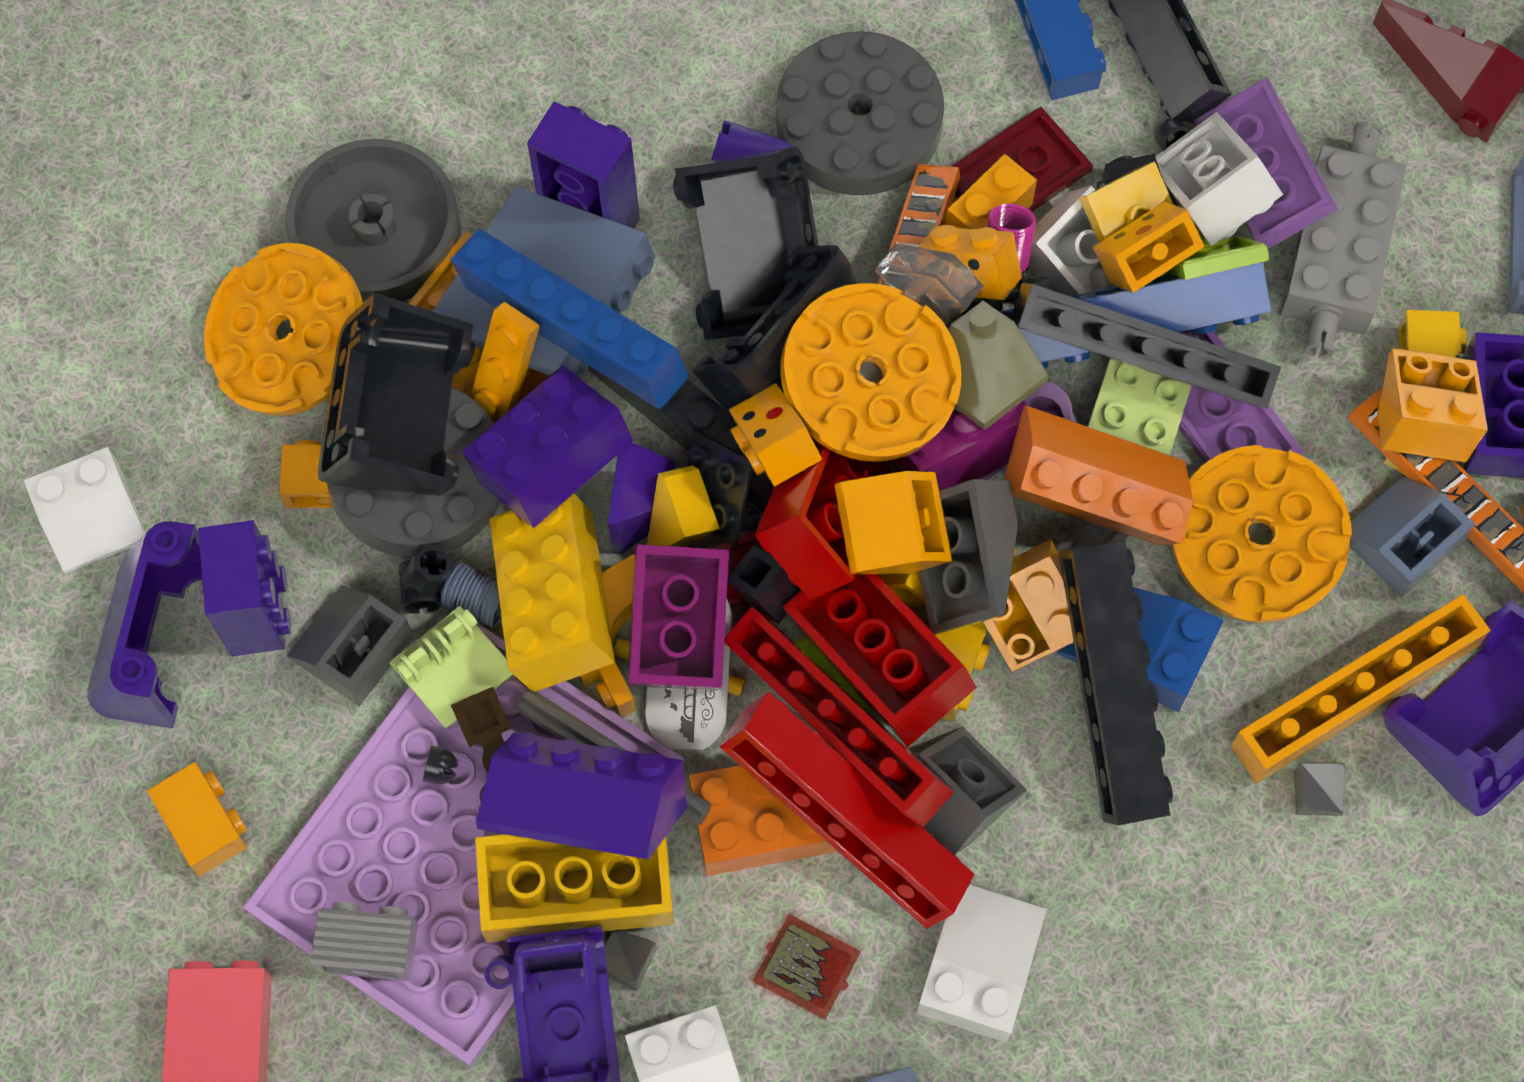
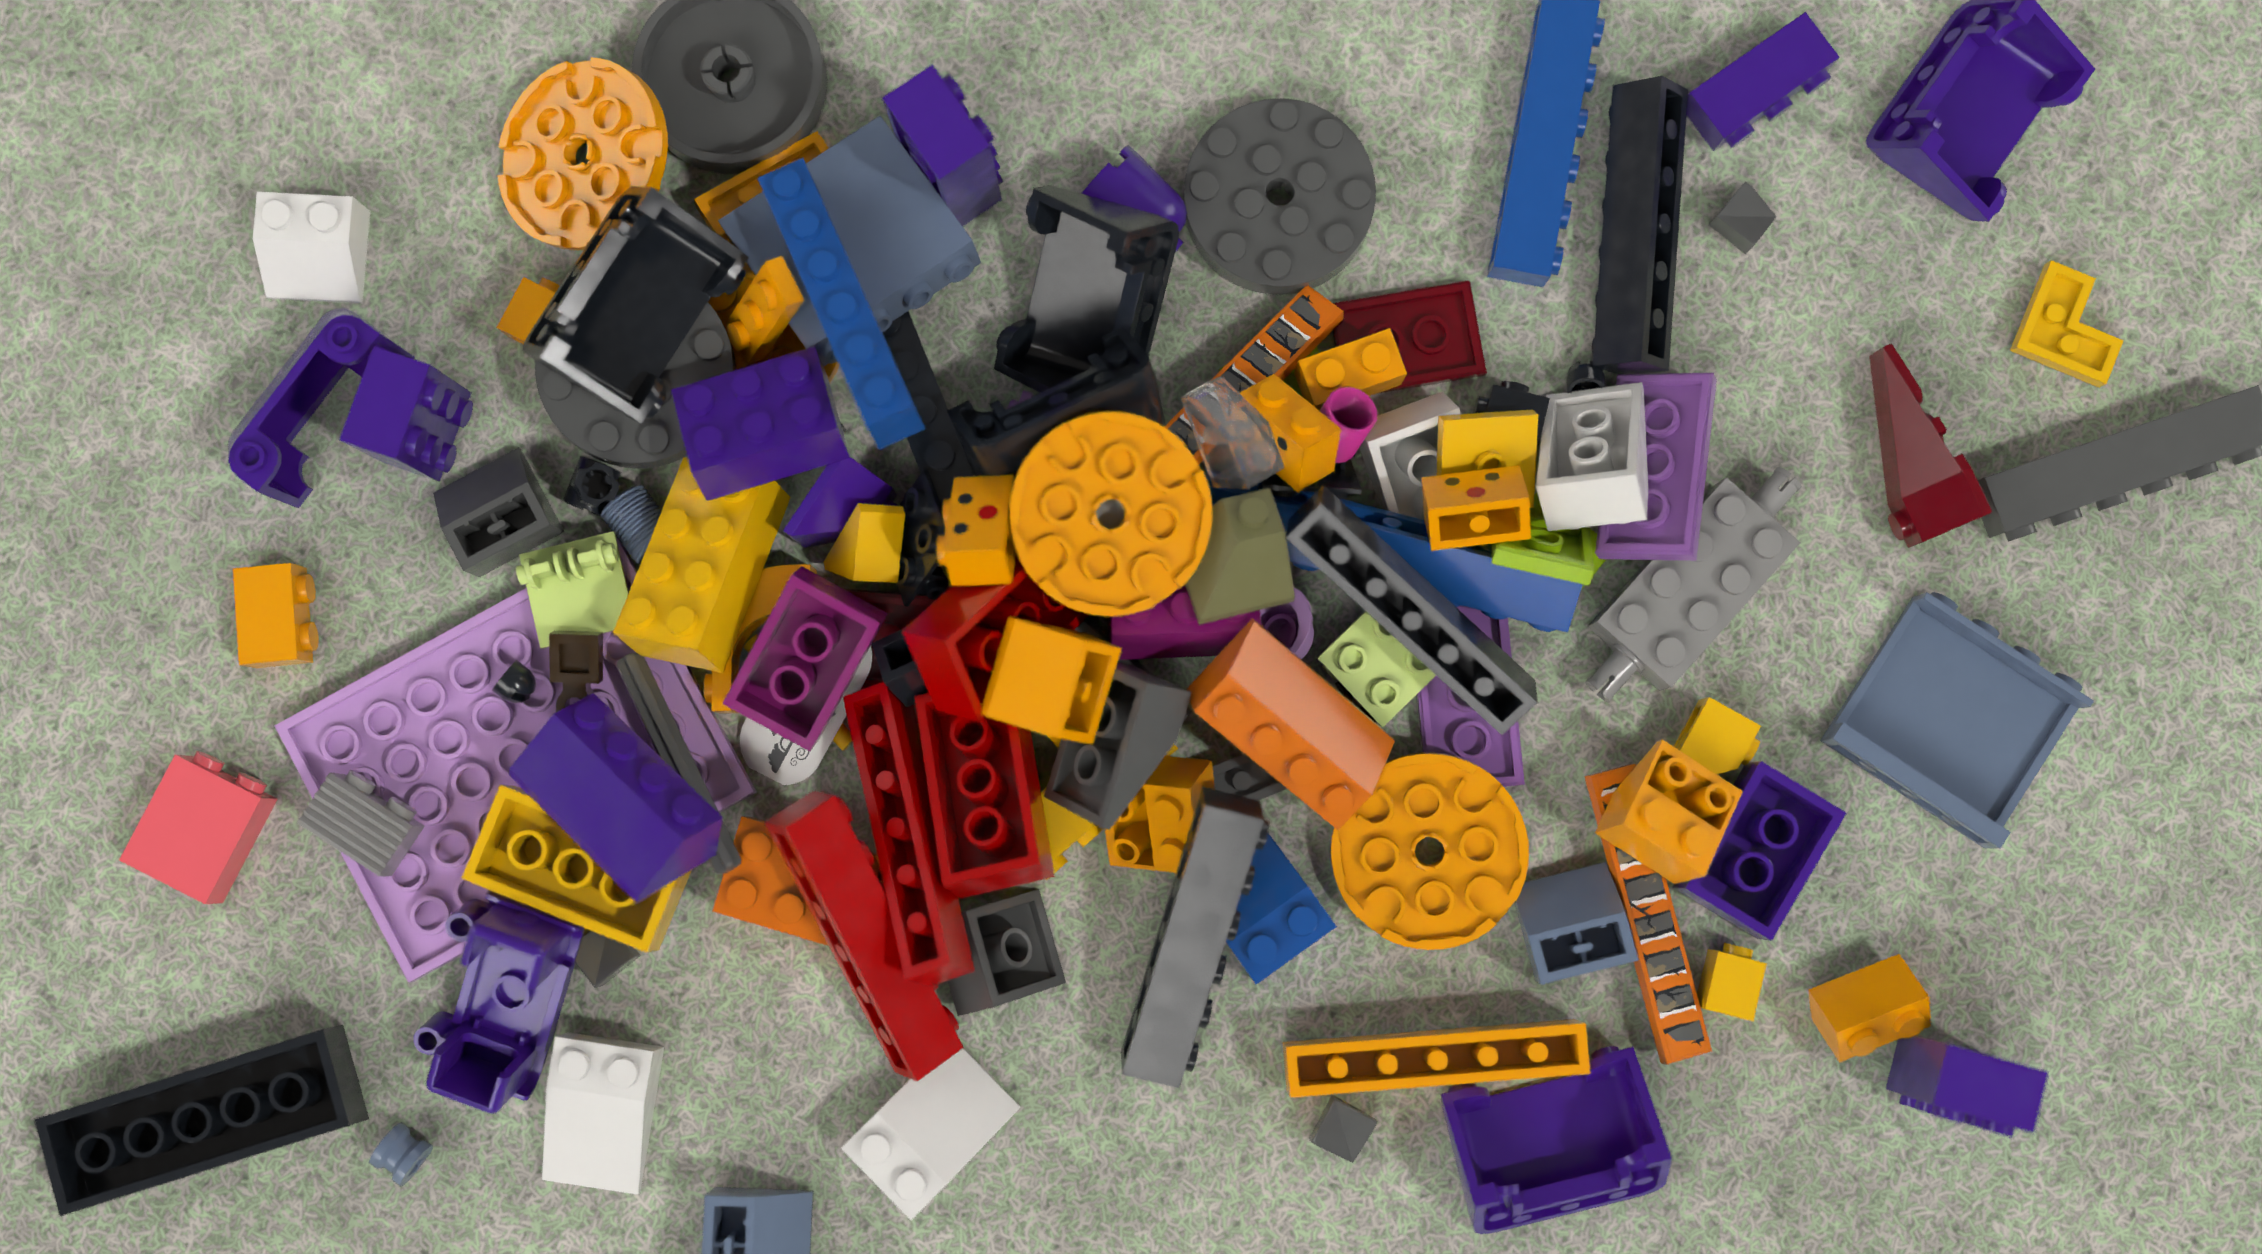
camera: 30 degrees right, 15 degrees up
(807, 966) = (769, 1045): piece -> none

